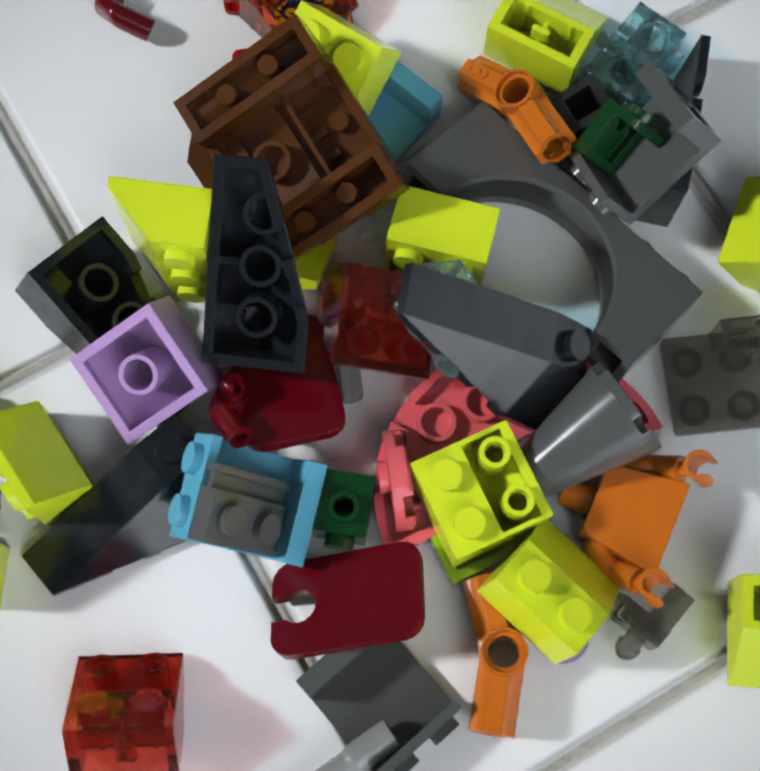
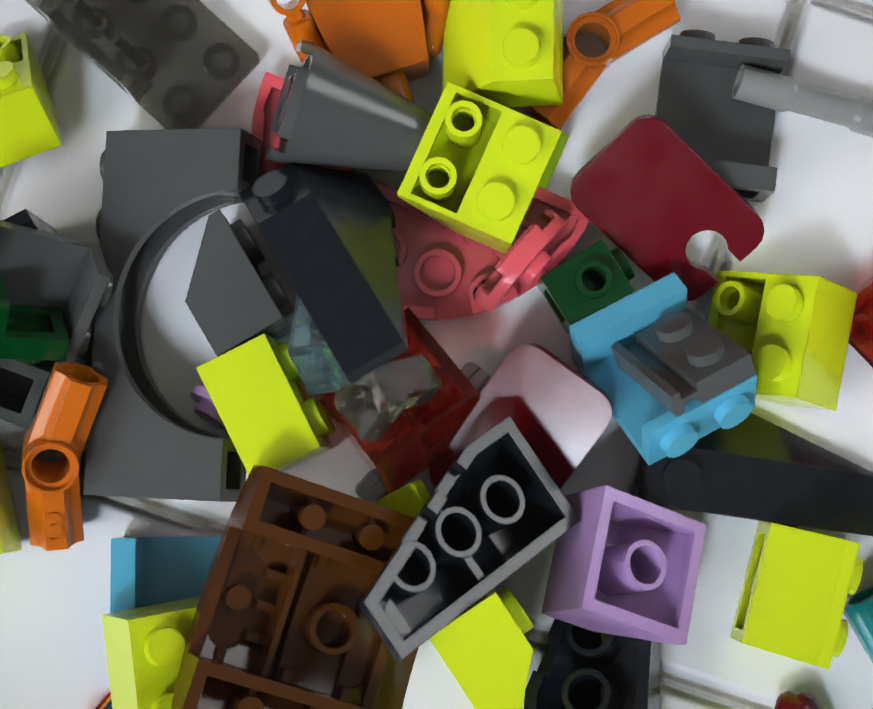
camera: 130 degrees left, 10 degrees up
(198, 604) = (792, 330): none -> neon yellow slope
(228, 408) = (599, 459): dark red arm -> none
(381, 296) = (384, 393): none -> clear smoke piece
(535, 271) = (230, 293): none -> dark grey slope

